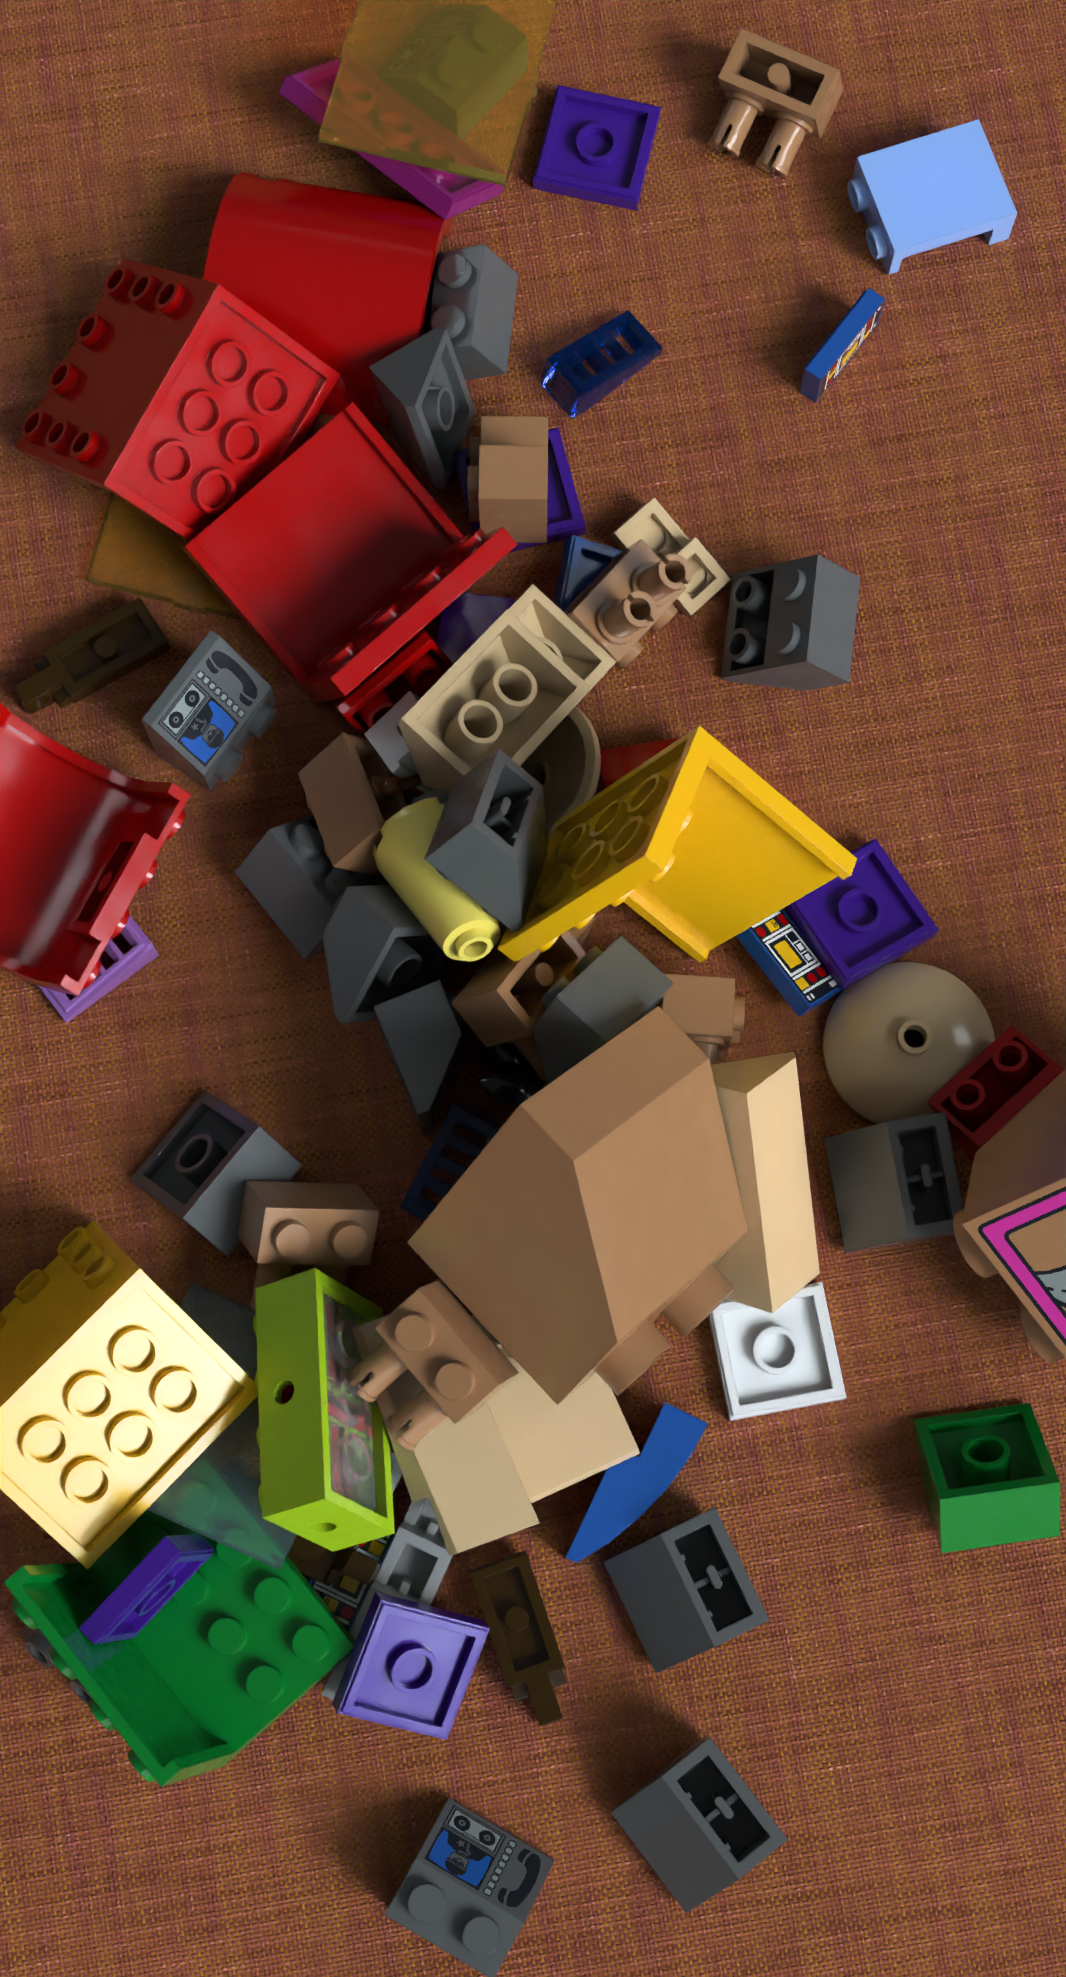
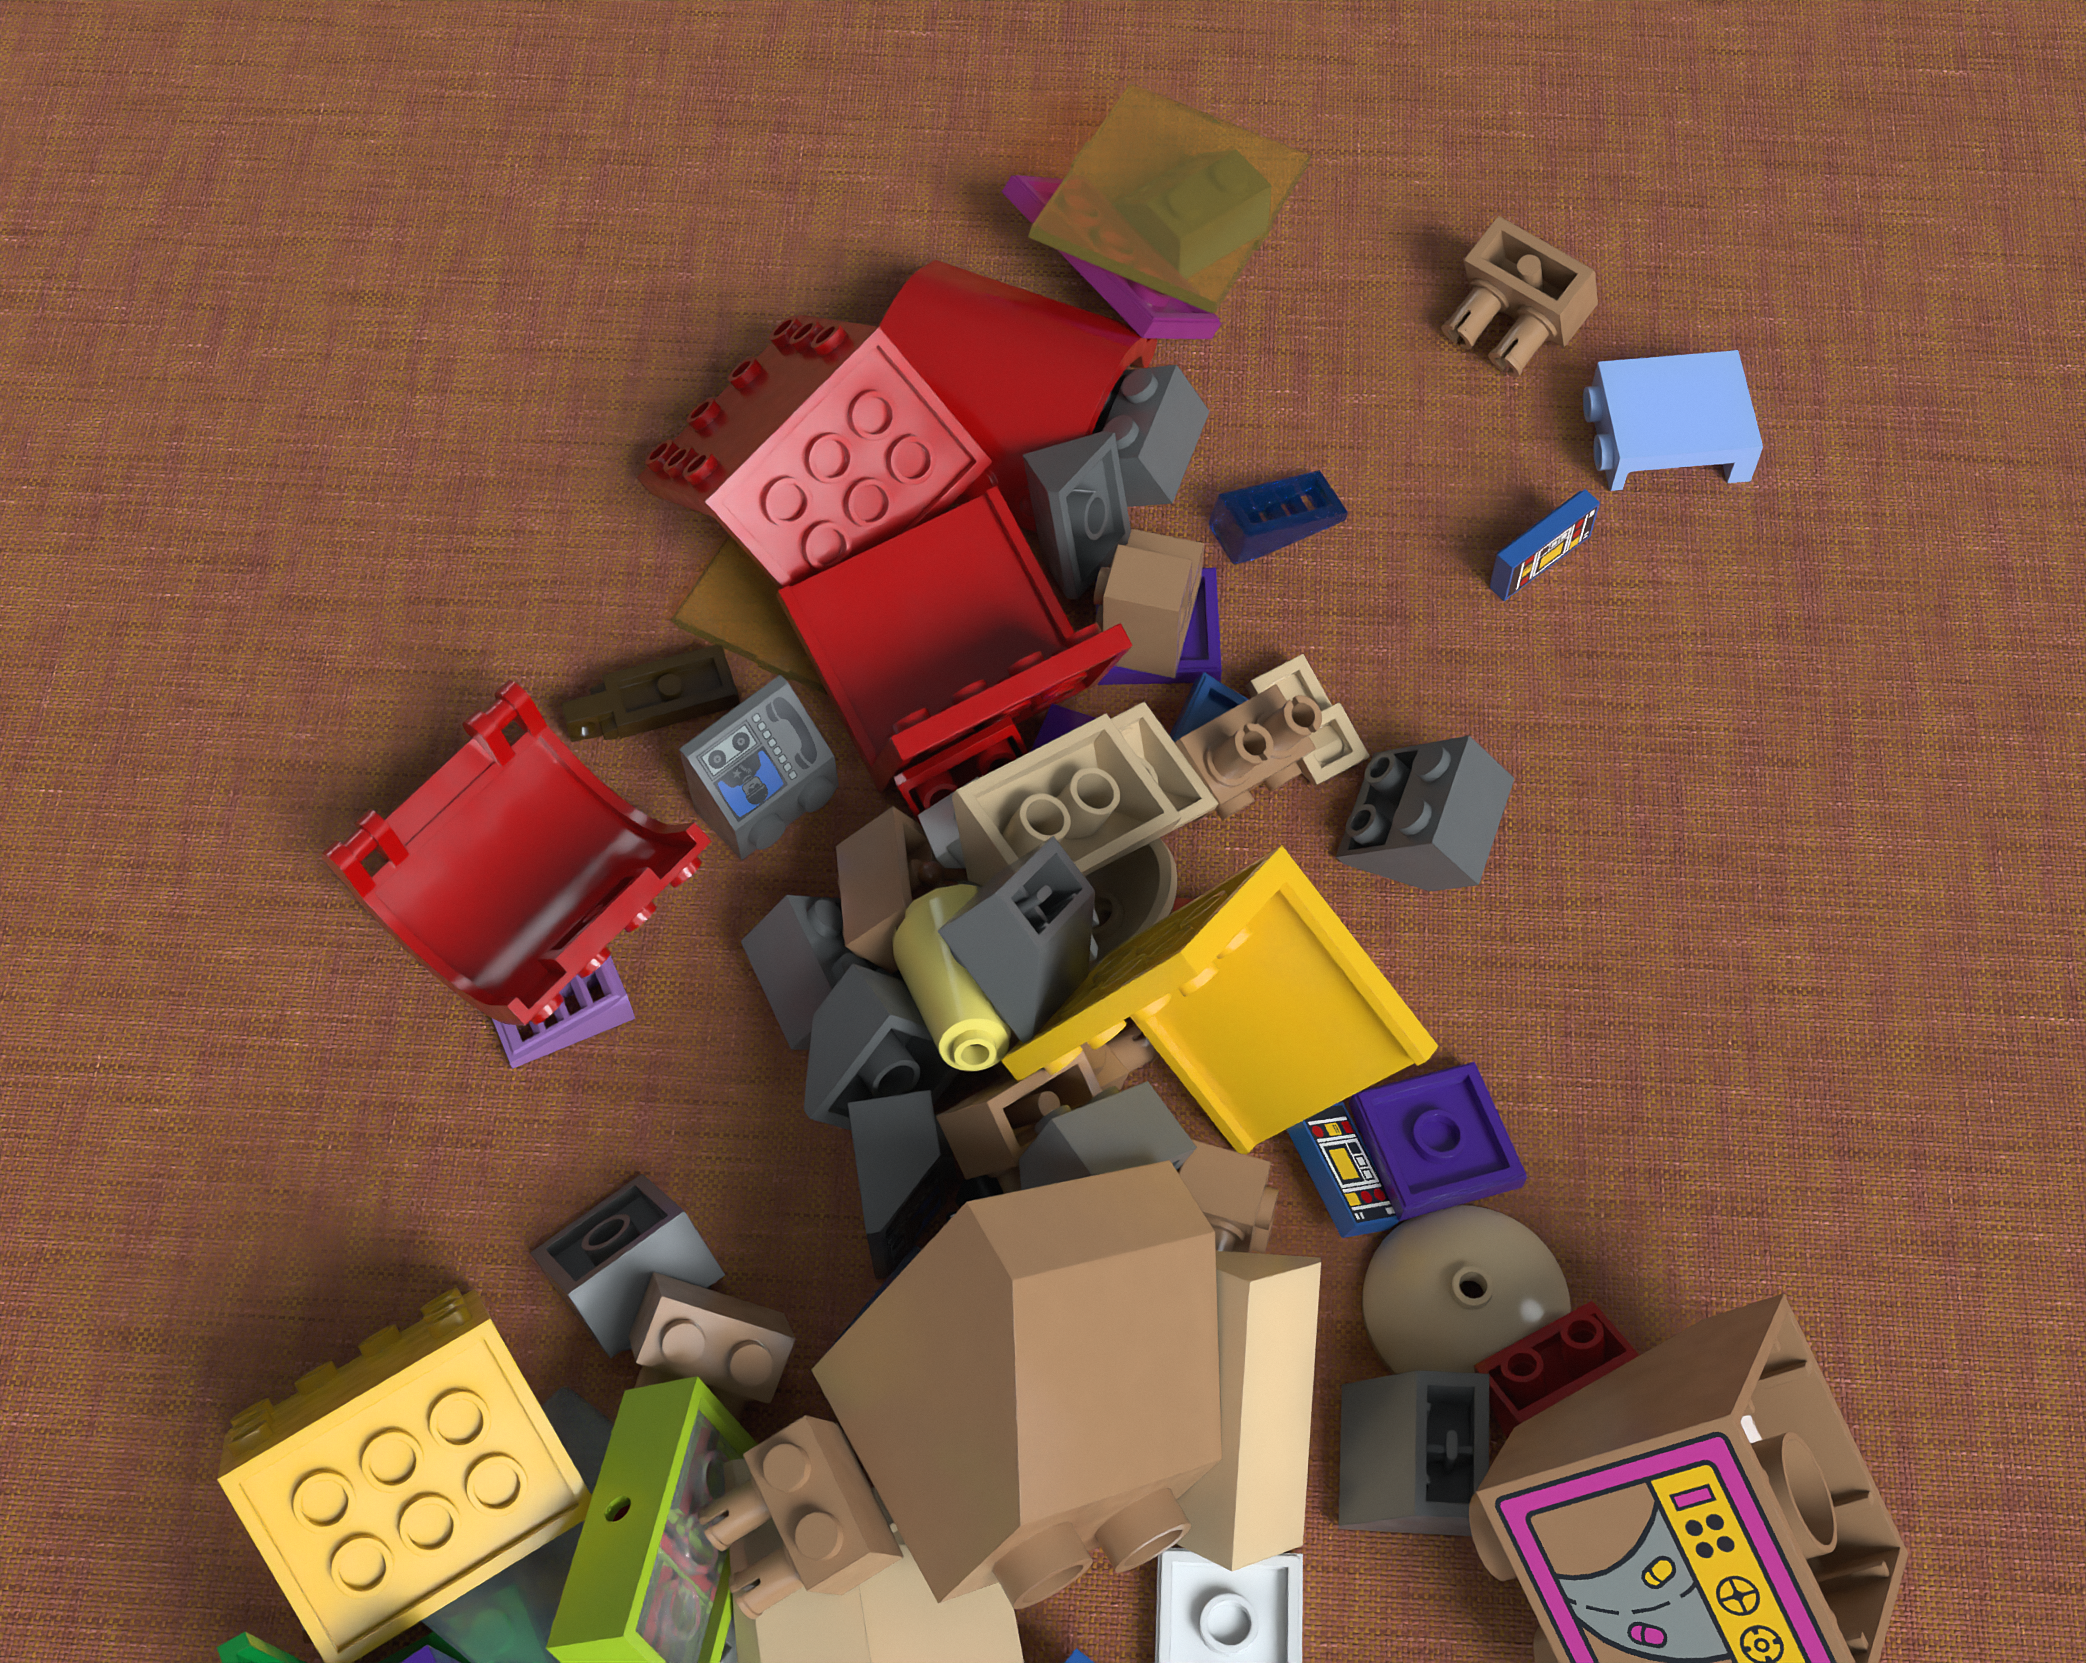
camera: 15 degrees right, 15 degrees down
(596, 147) = (1323, 313): dark purple tile -> none

